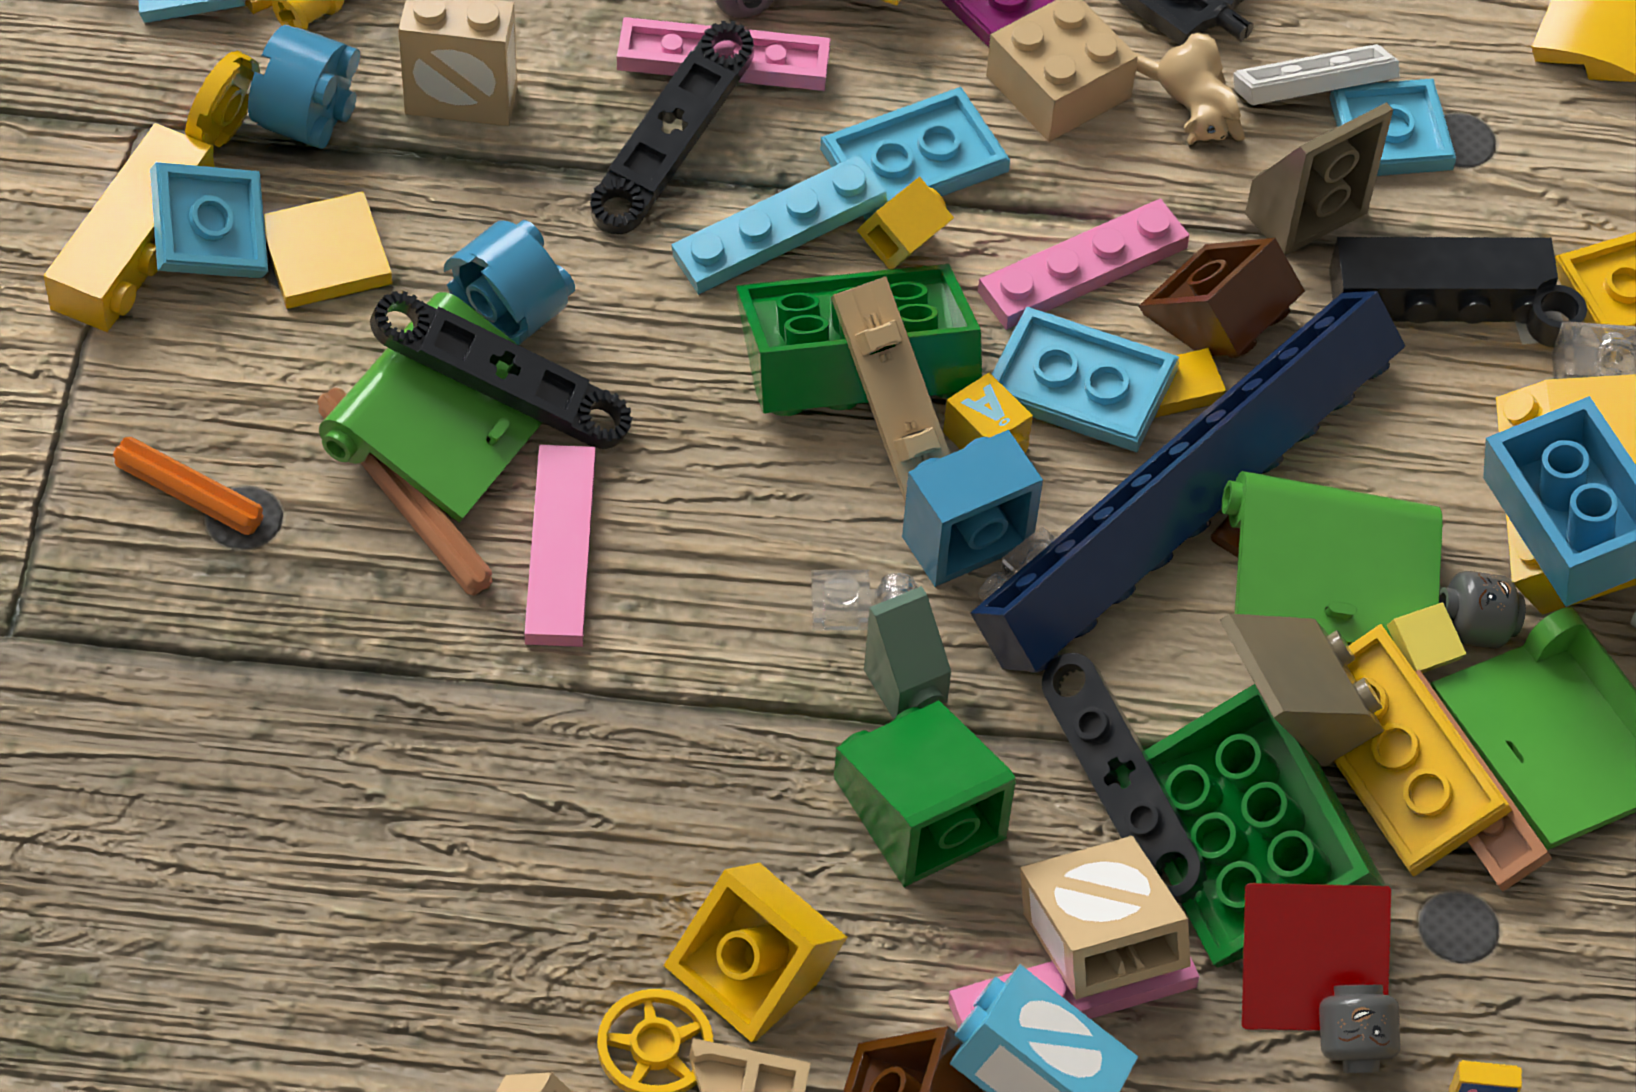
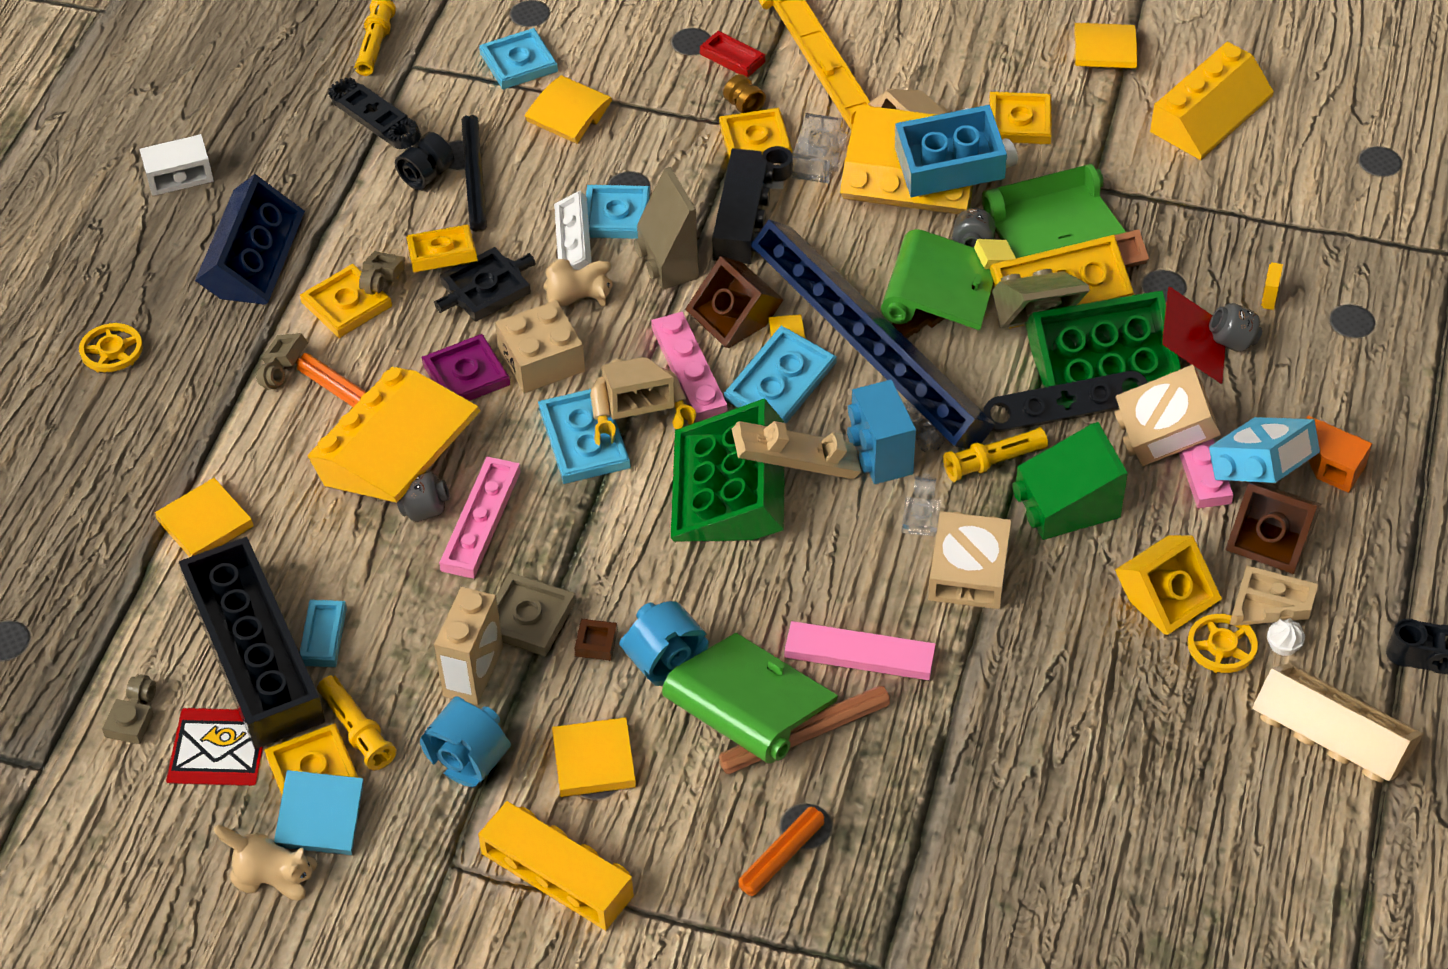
camera: 75 degrees left, 5 degrees down
(208, 220) = (569, 811): medium azure tile -> none
(222, 100) = (467, 791): yellow tile -> none
(471, 356) = (725, 665): black piece -> none
(526, 205) = (596, 639): none -> reddish brown plate
(556, 134) = (532, 612): none -> dark tan plate
(654, 156) = (558, 563): black piece -> none
(755, 664) = (969, 560): none -> tan brick
(779, 224) = (631, 506): medium azure plate -> none
(905, 223) = (651, 438): yellow brick -> none
(906, 653) = (982, 481): sand green slope -> none
(970, 665) = (981, 457): none -> yellow pin
(984, 180) = (636, 389): none -> tan torso
(985, 411) = (811, 417): yellow brick -> none

